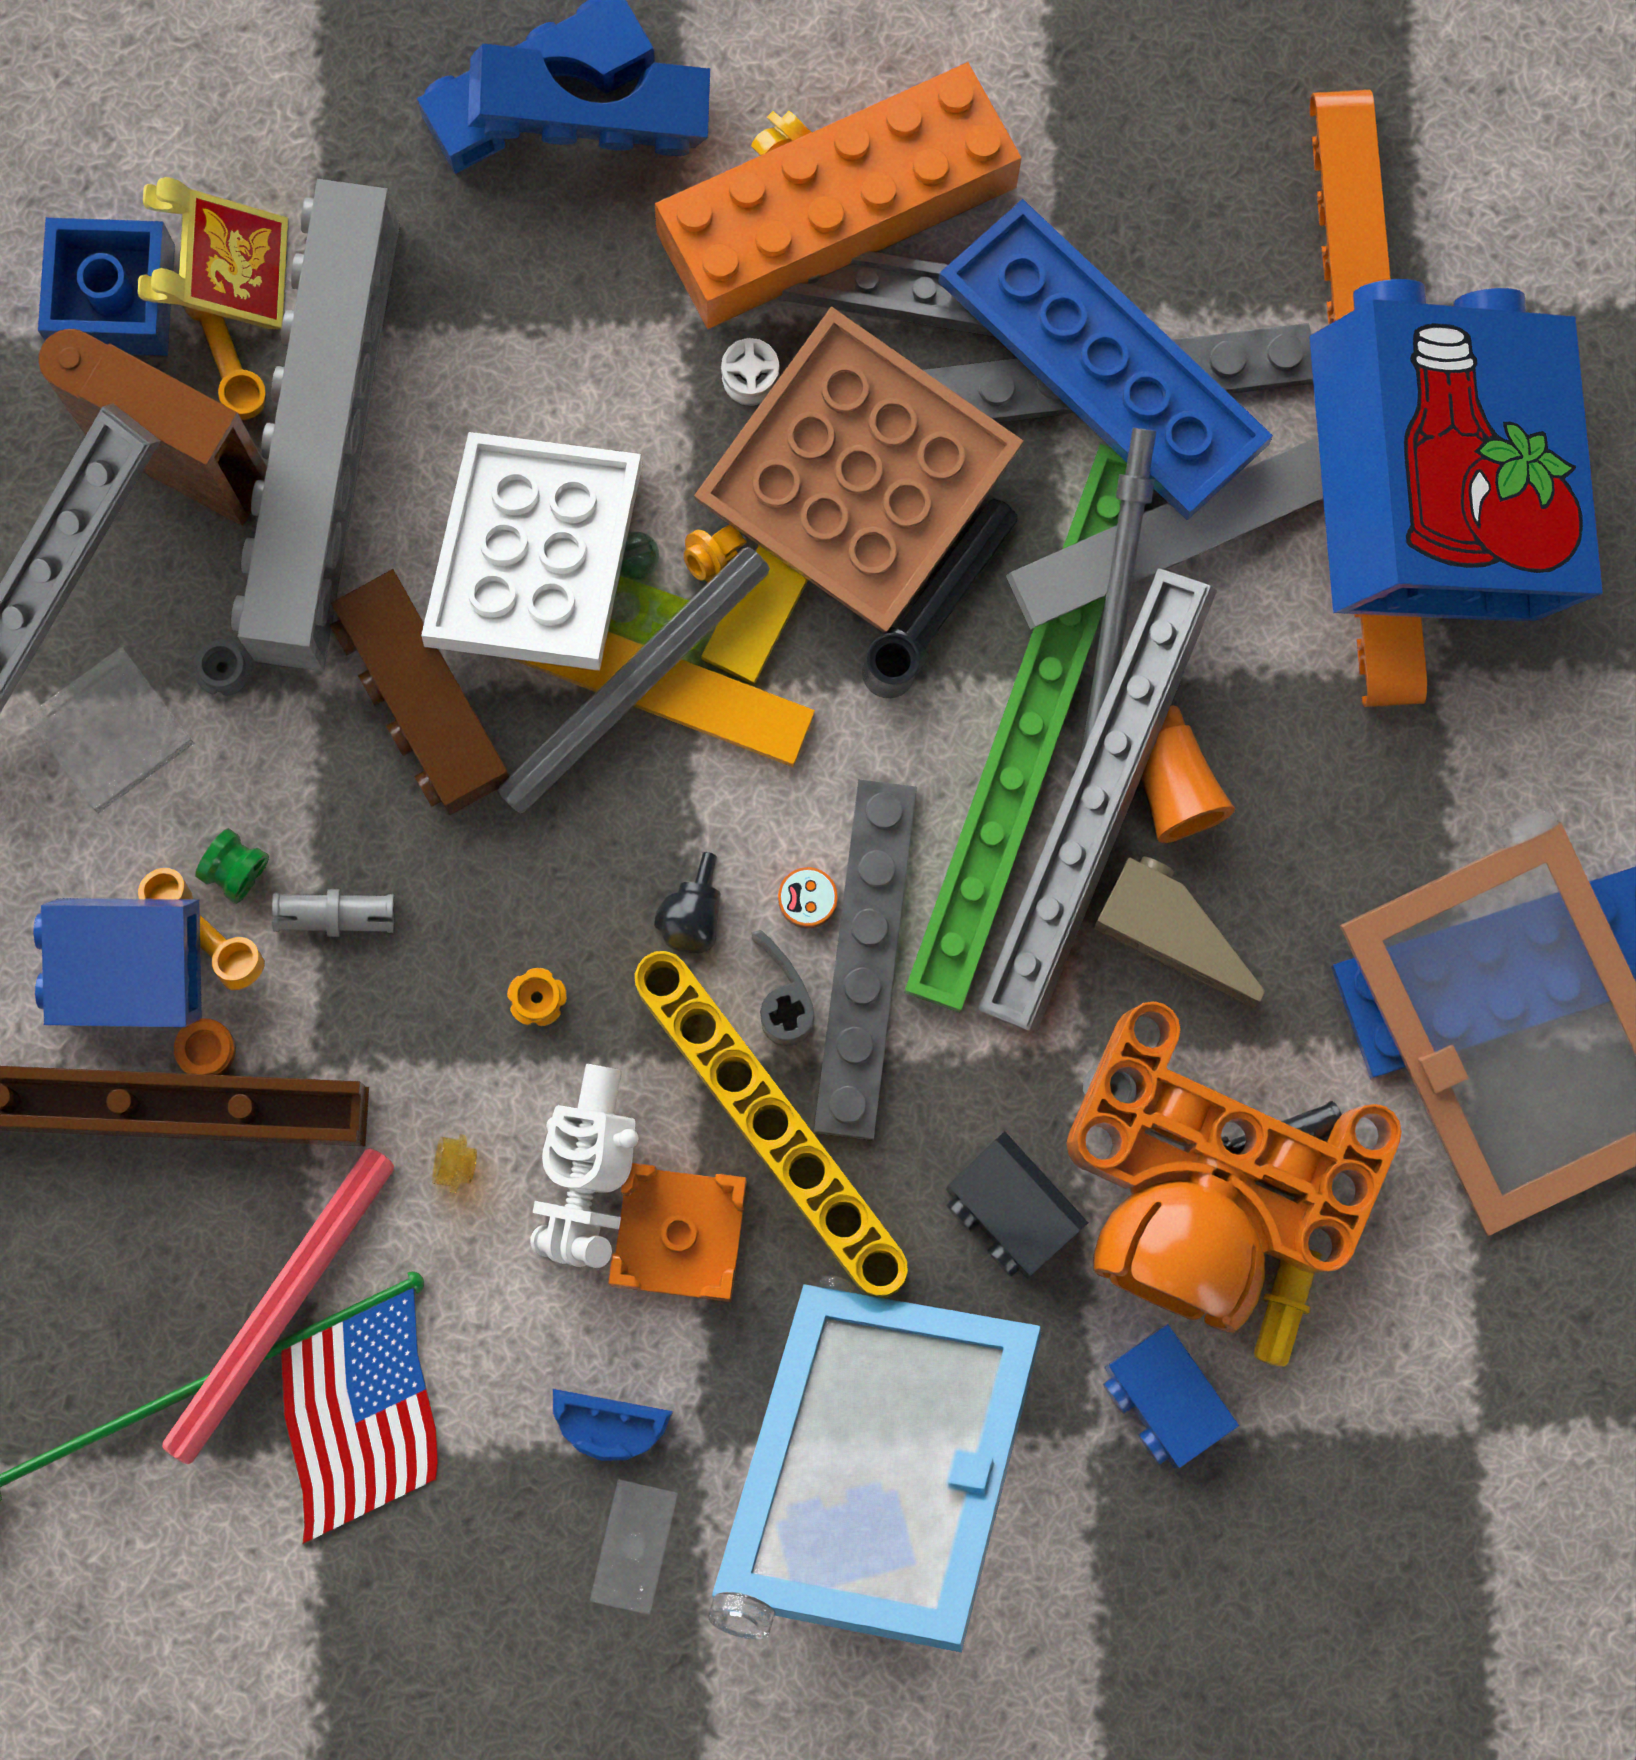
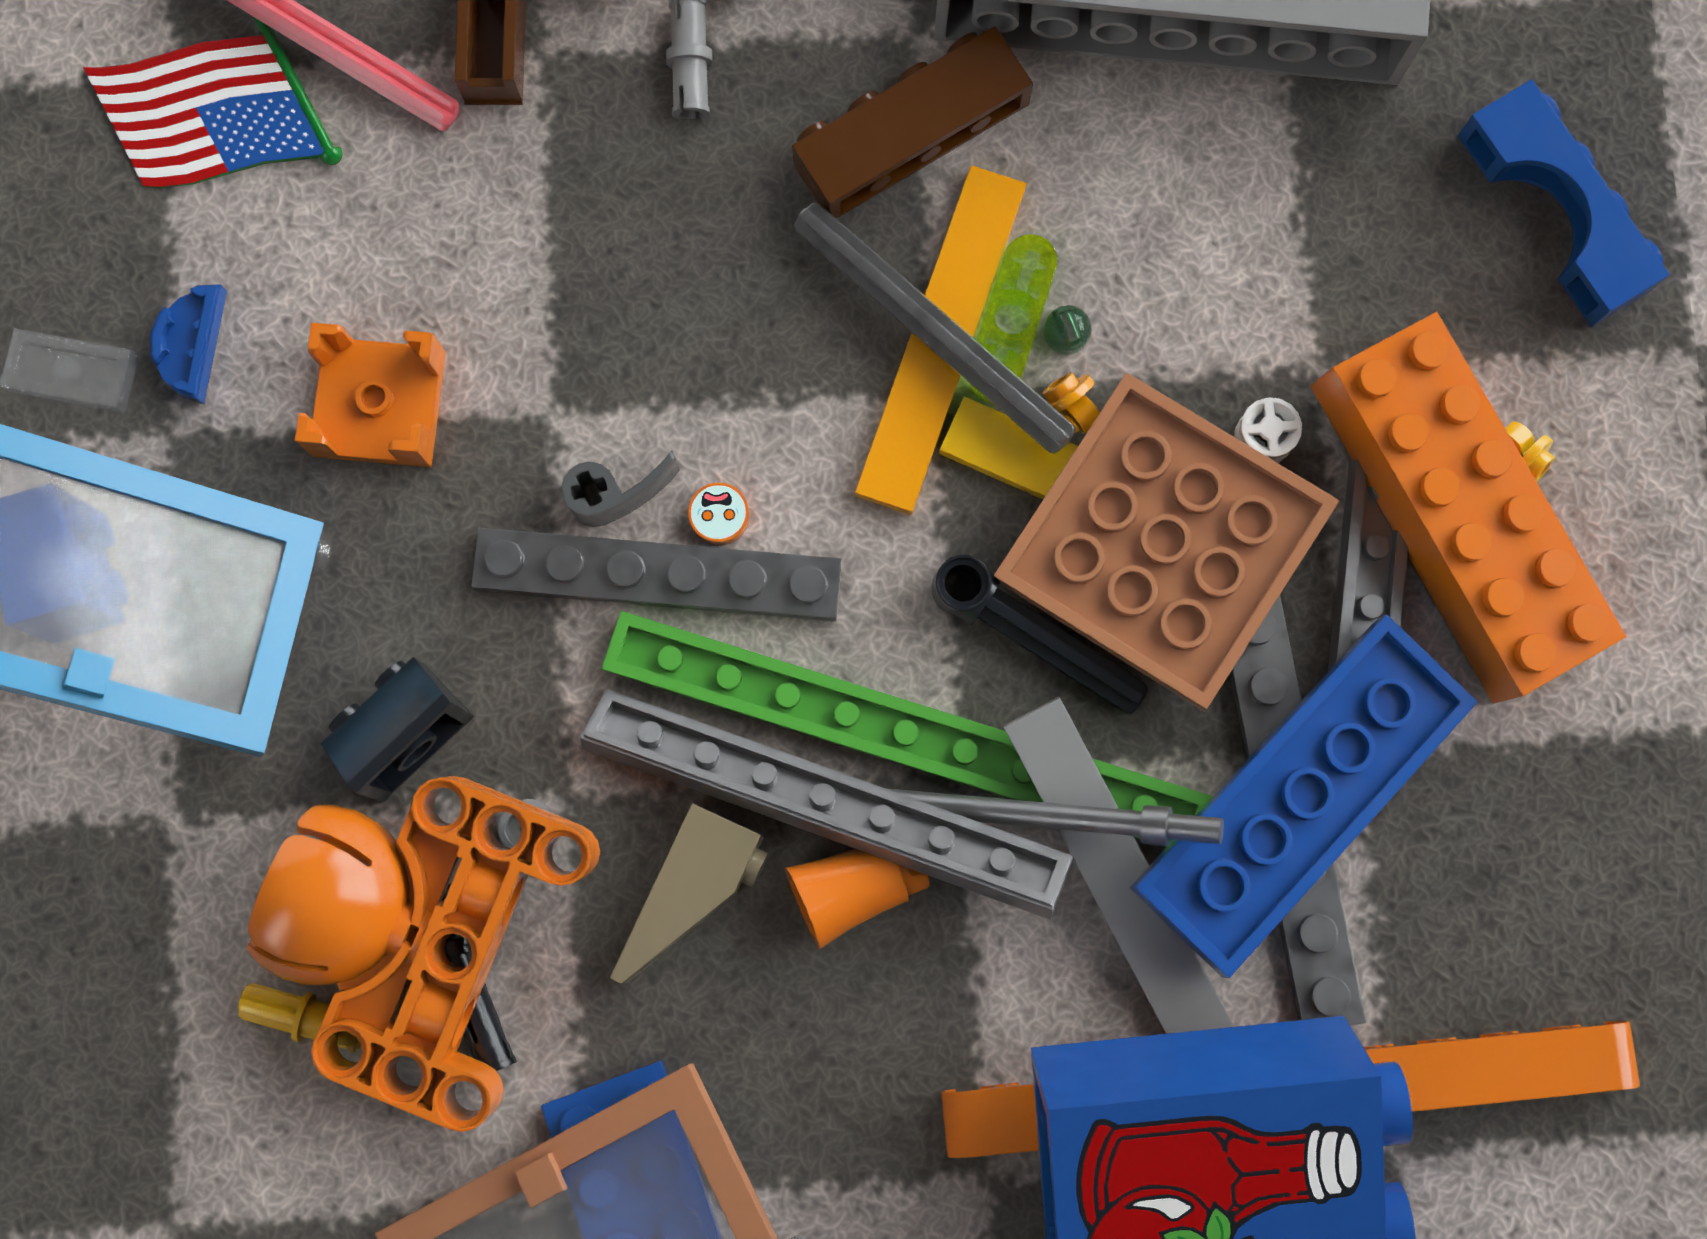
camera: 90 degrees right, 0 degrees up
(453, 1163) = (444, 182): clear yellow plate -> none
(517, 94) = (1541, 168): blue arch -> none
(525, 986) = (606, 239): light orange plate -> none
(532, 551) = (1060, 219): white plate -> none
(588, 1154) = (436, 301): white torso -> none
(691, 915) = (695, 398): black piece -> none
(763, 1095) = (451, 485): yellow beam -> none
(1169, 1398) = (200, 896): blue brick -> none

